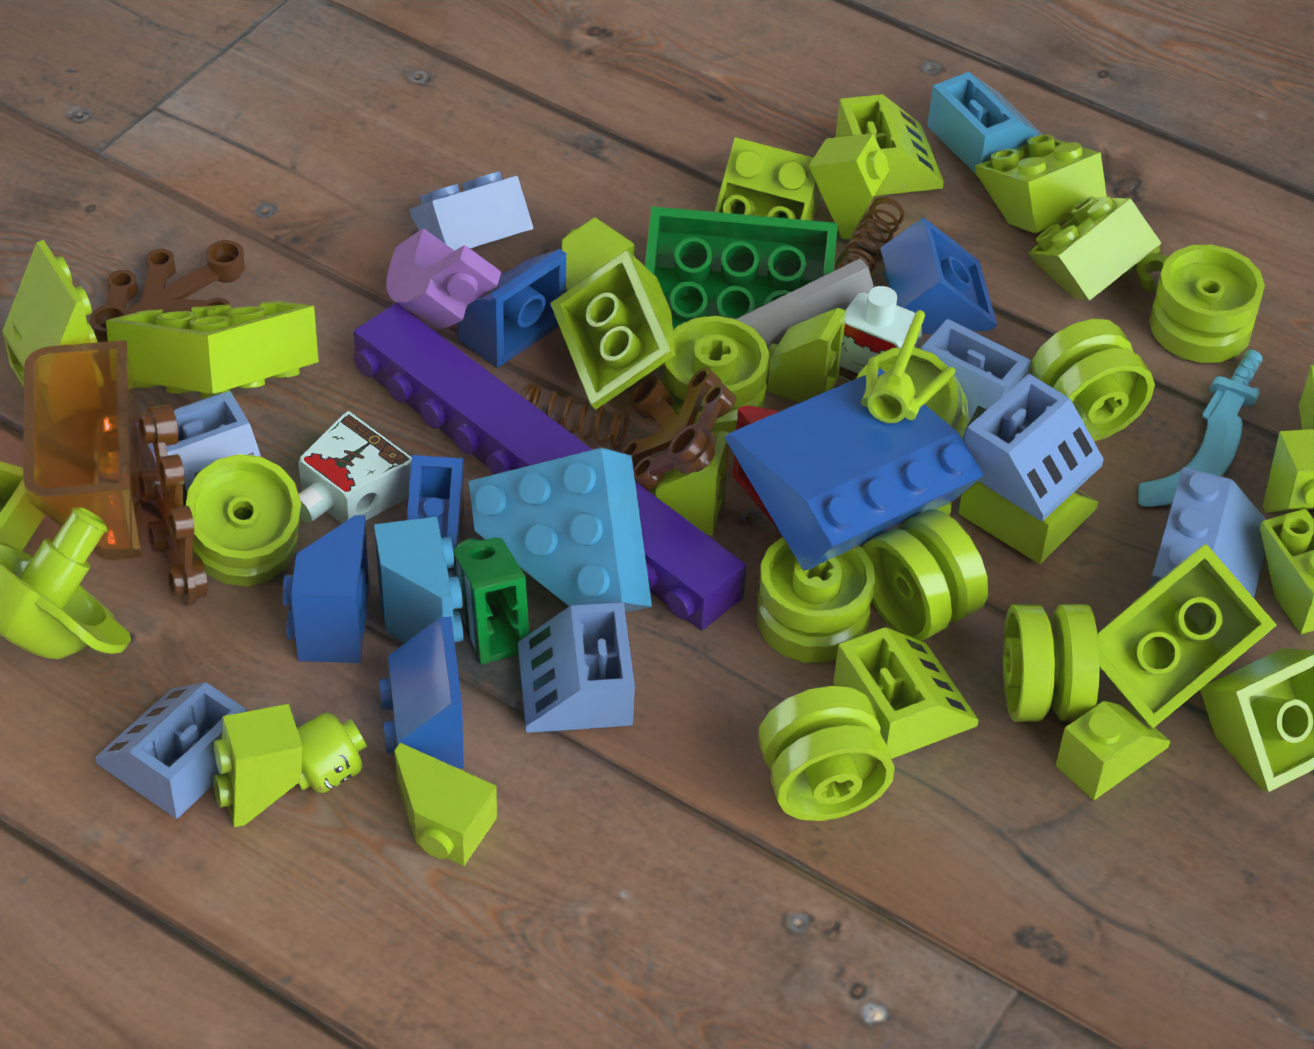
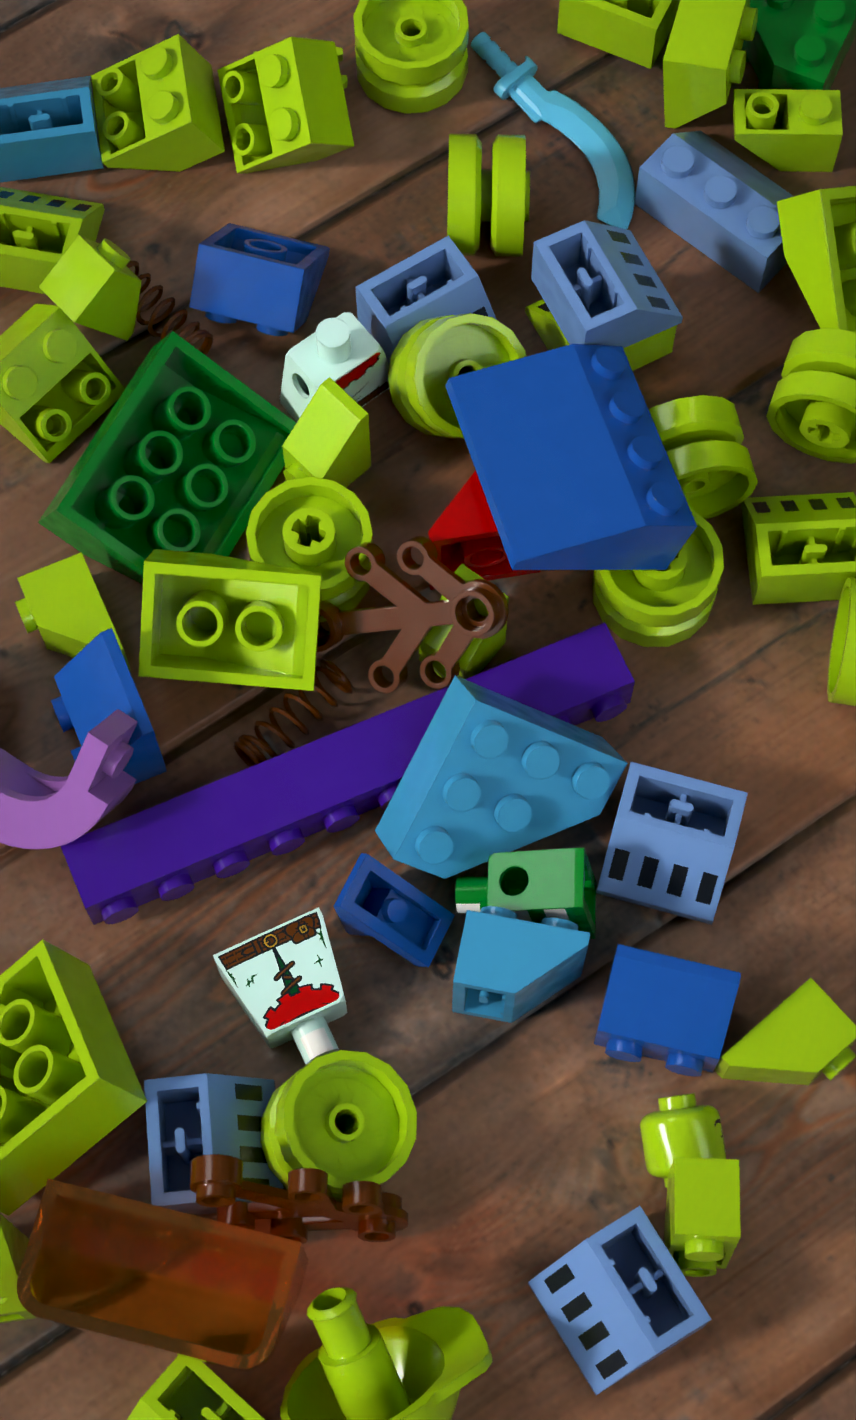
camera: 65 degrees left, 20 degrees up
(330, 595) = (488, 1058): blue slope -> none
(811, 300) = (265, 412): light grey tile -> none
(892, 393) = (520, 377): lime plant -> none

